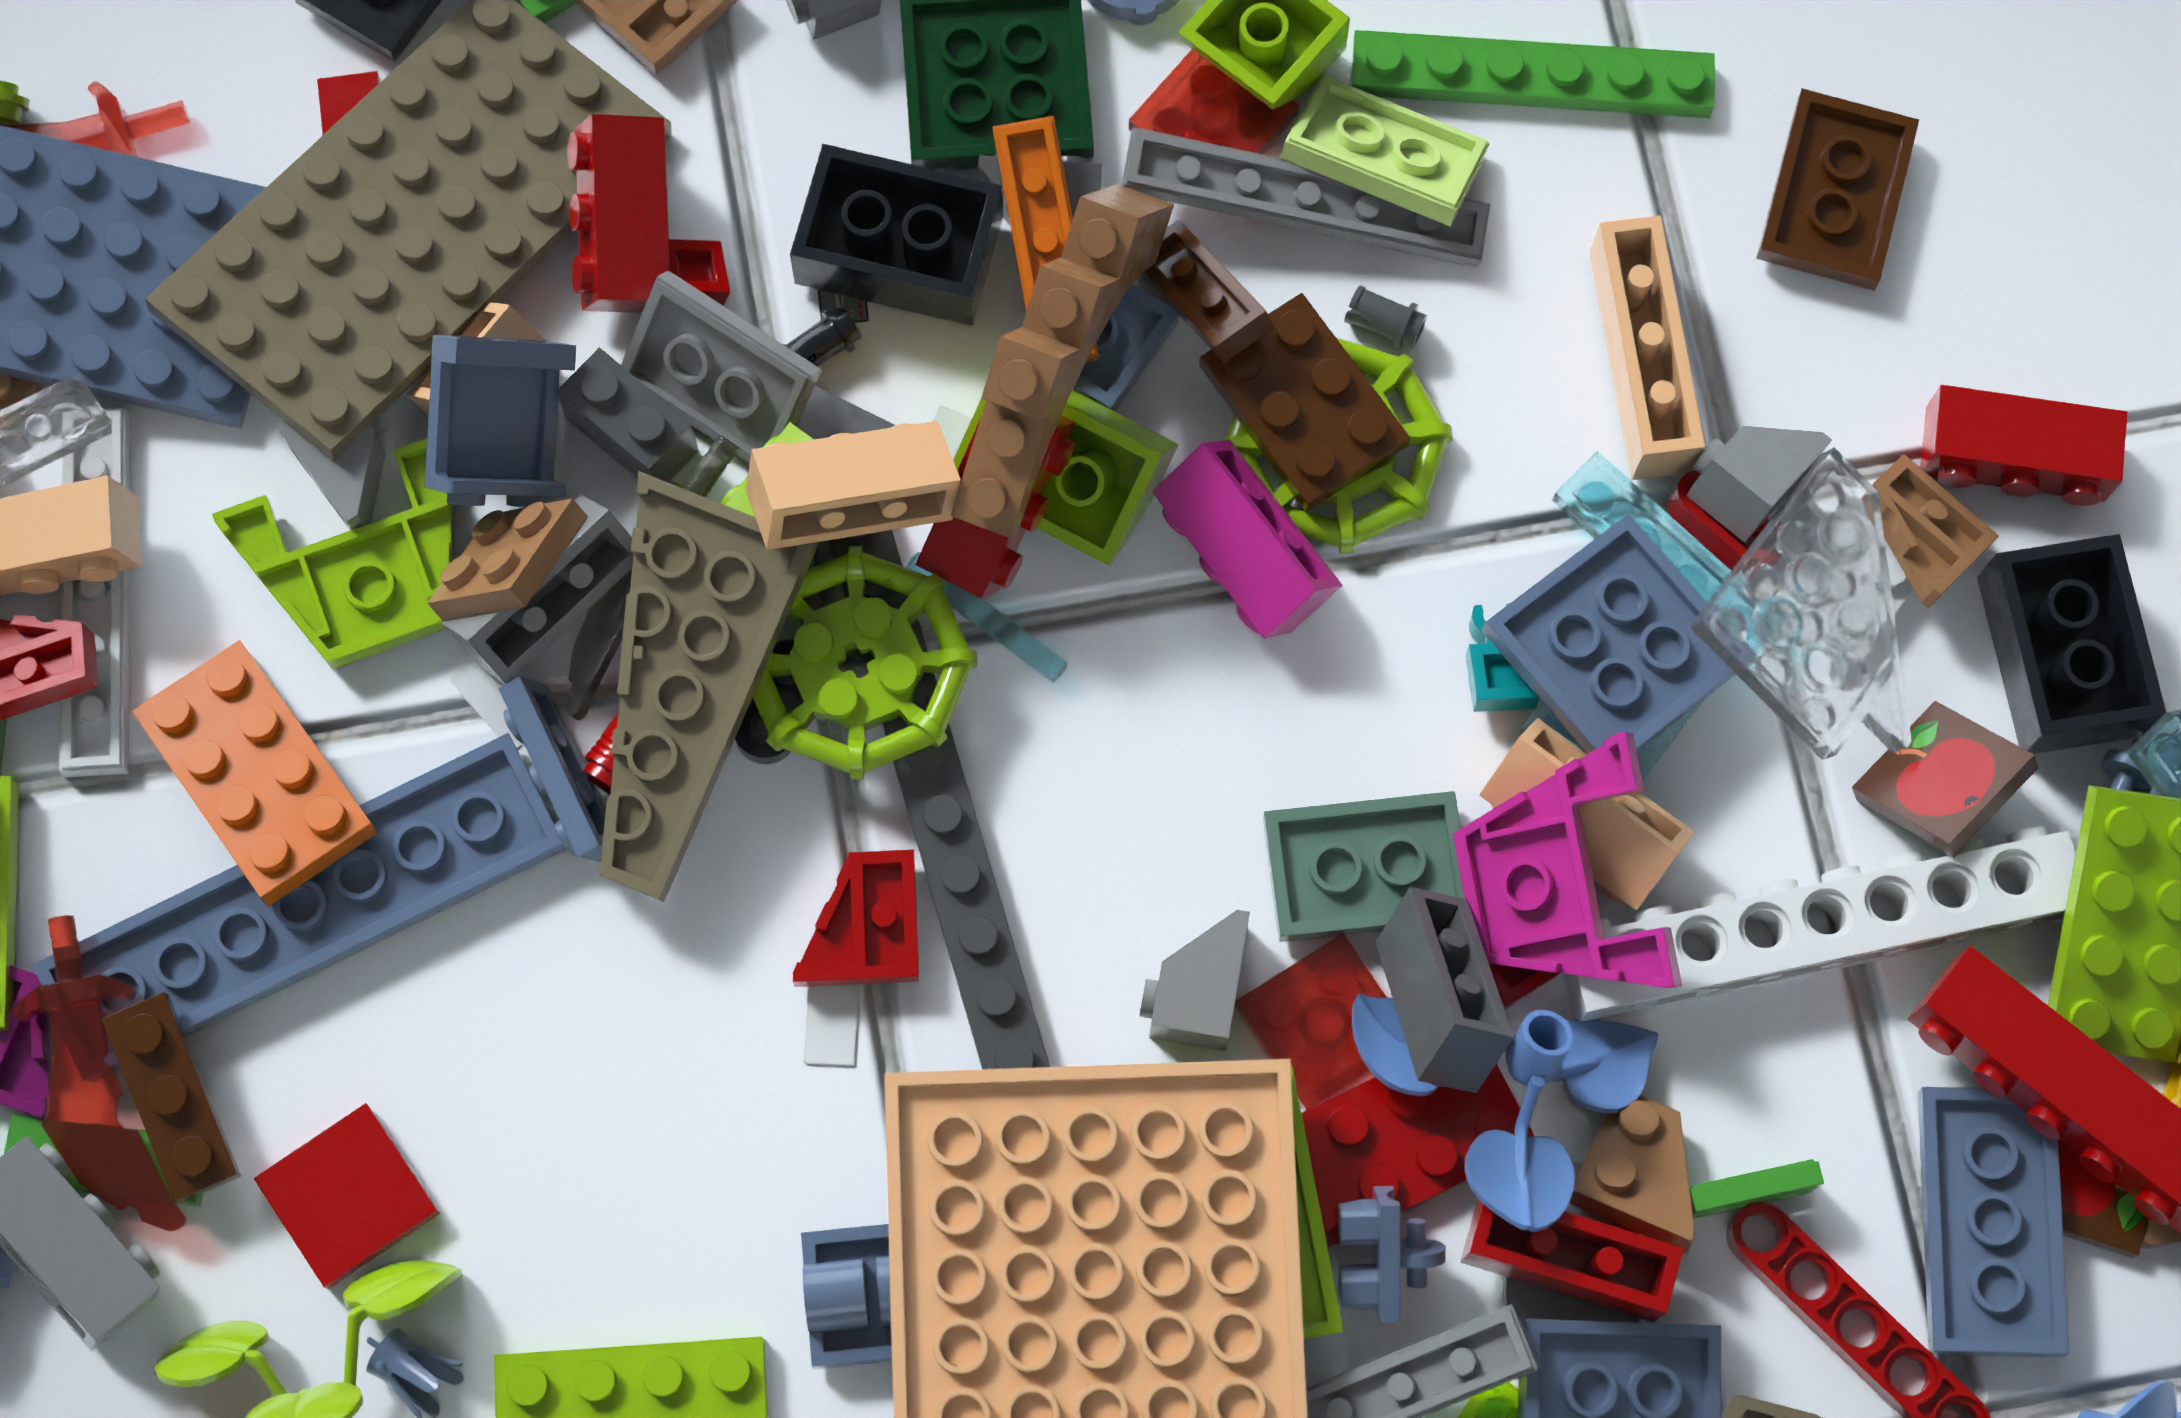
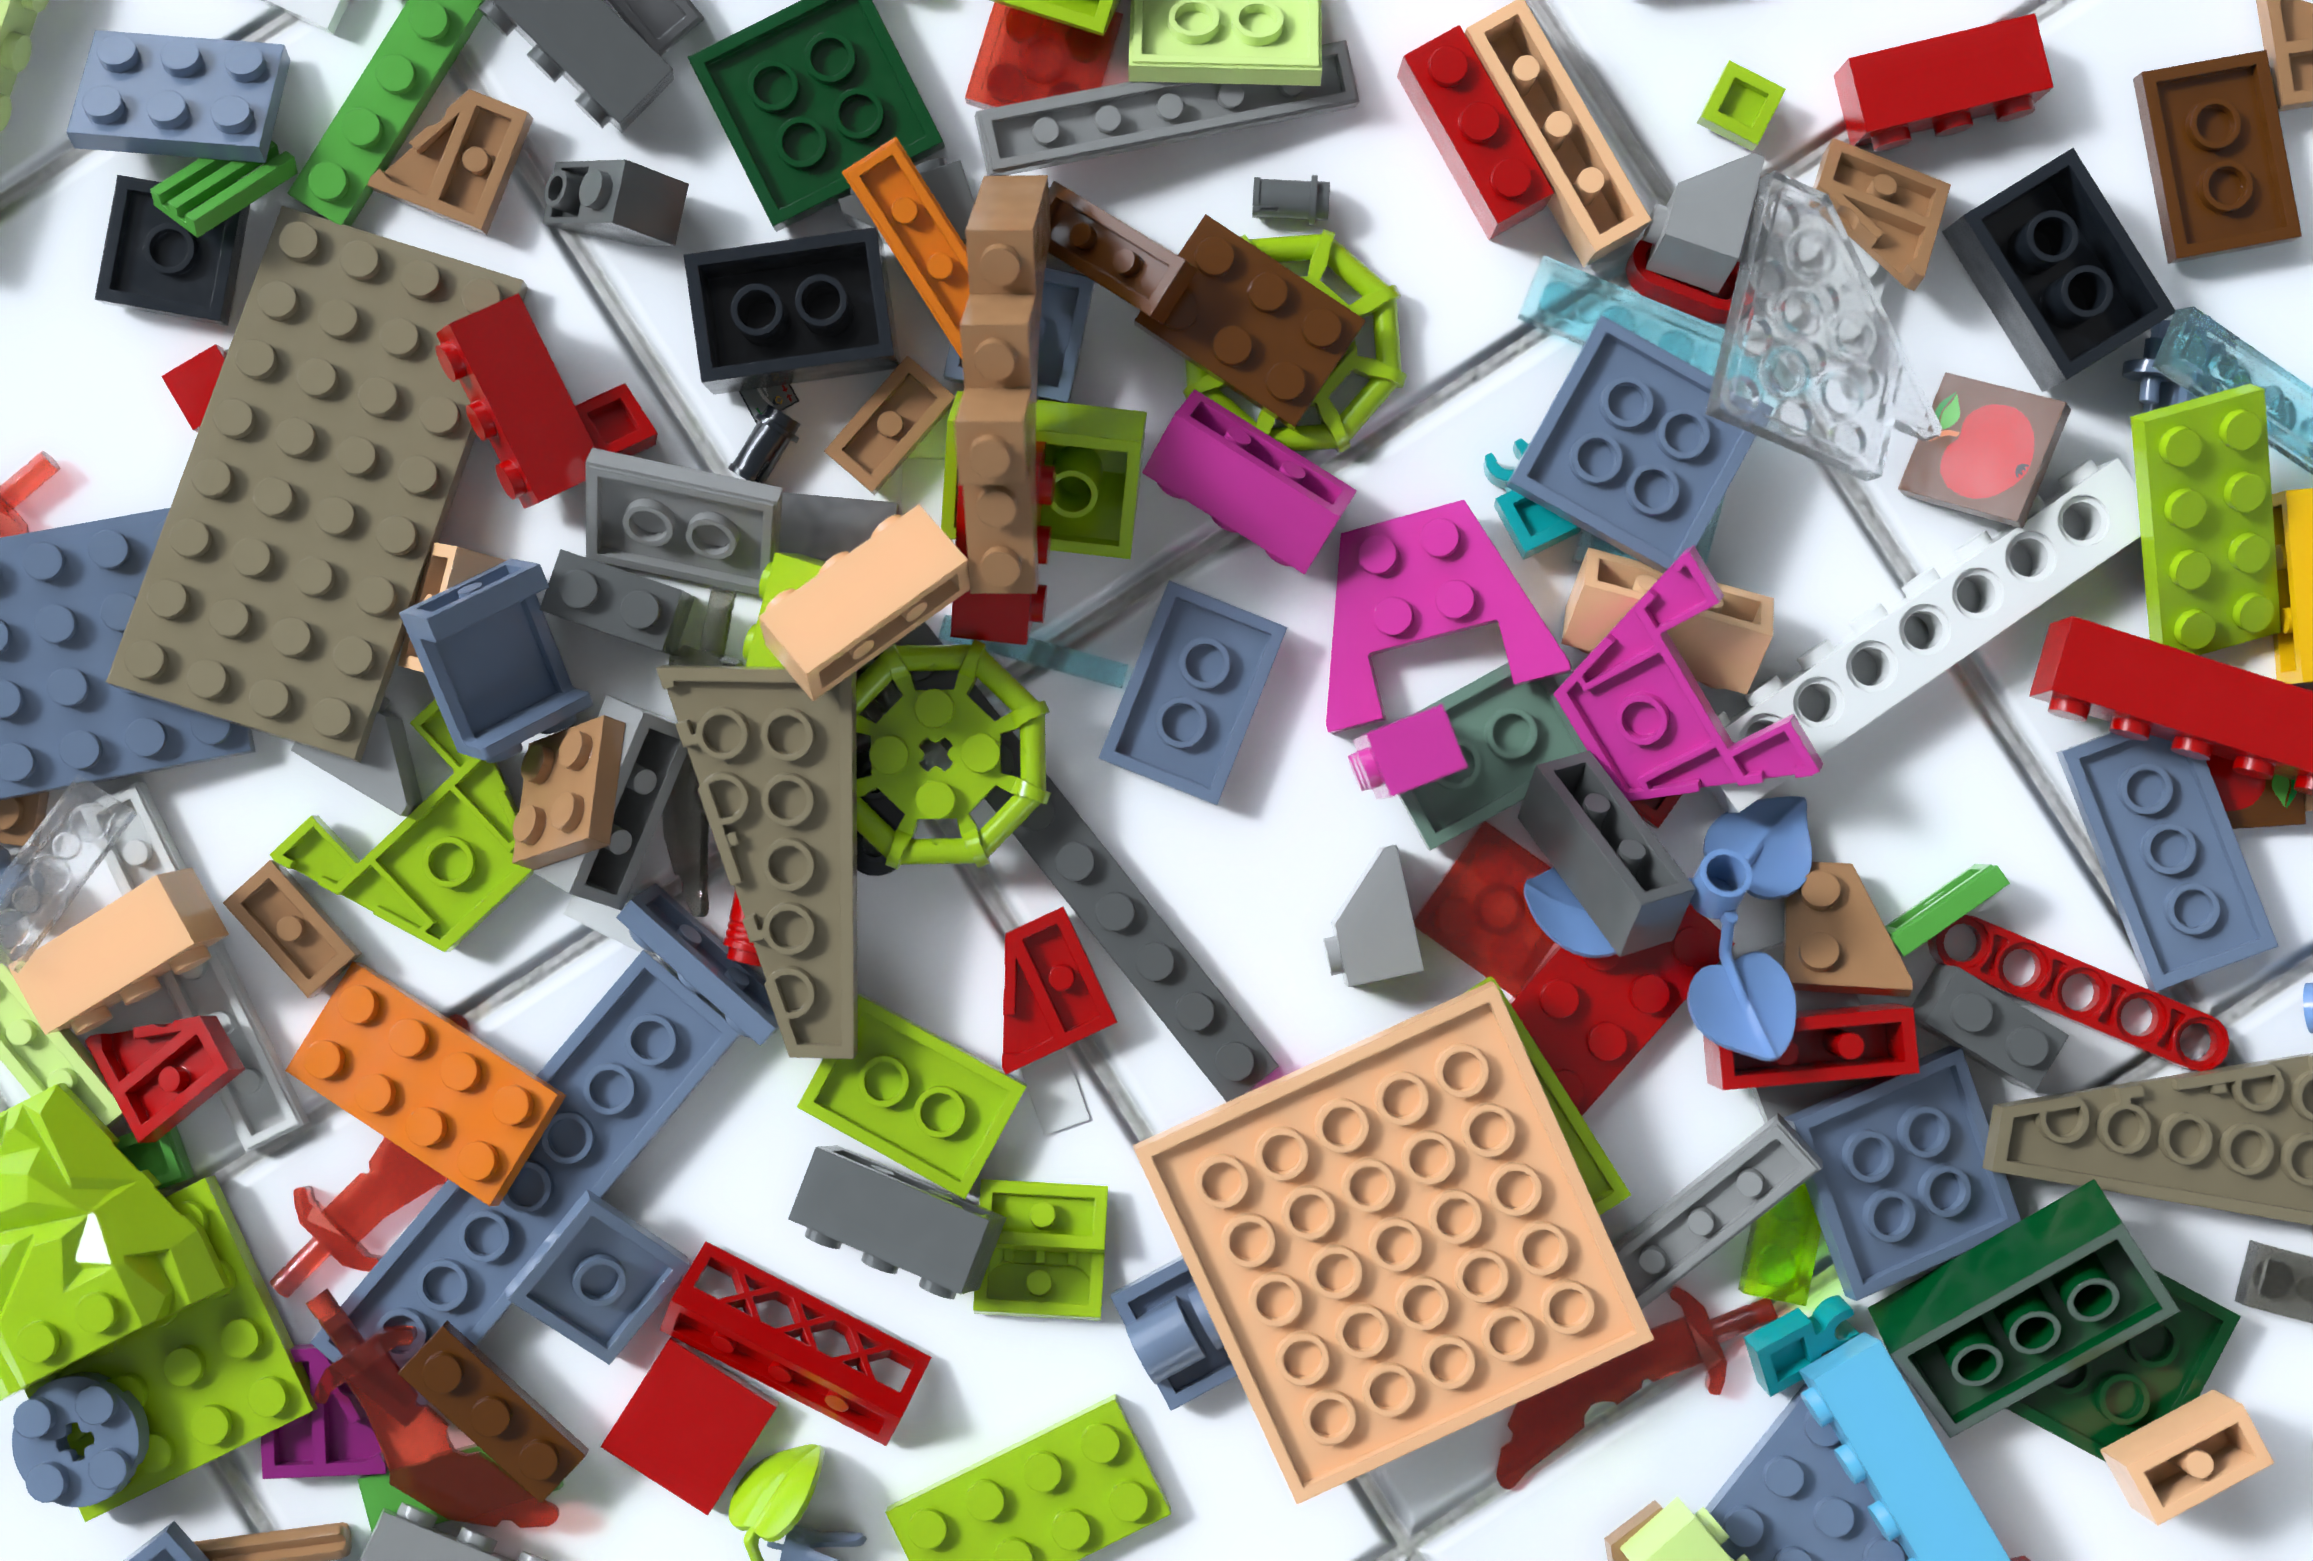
camera: 20 degrees left, 15 degrees up
(182, 854) = (339, 1228): none -> clear red sword
(199, 588) = (292, 928): none -> medium nougat plate
(327, 1012) = (597, 1277): none -> sand blue plate
(468, 1161) = (790, 1364): none -> red fence
(630, 1073) = (896, 1221): none -> dark grey brick
(698, 972) = (915, 1098): none -> lime plate
(753, 1166) = (1047, 1251): none -> lime slope
(782, 87) = (615, 201): none -> dark grey slope
(937, 368) = (890, 425): none -> medium nougat plate
(1116, 709) = (1192, 692): none -> sand blue plate
(1289, 812) = (1406, 754): none -> dark pink brick
(1370, 694) = (1420, 583): none -> dark pink wing
(1378, 1224) = (1646, 1101): sand blue hips -> none
(1574, 323) = (1474, 132): none -> red brick
(1756, 1317) = (1987, 1026): none -> dark grey brick
(1829, 394) = (1741, 105): none -> lime plate

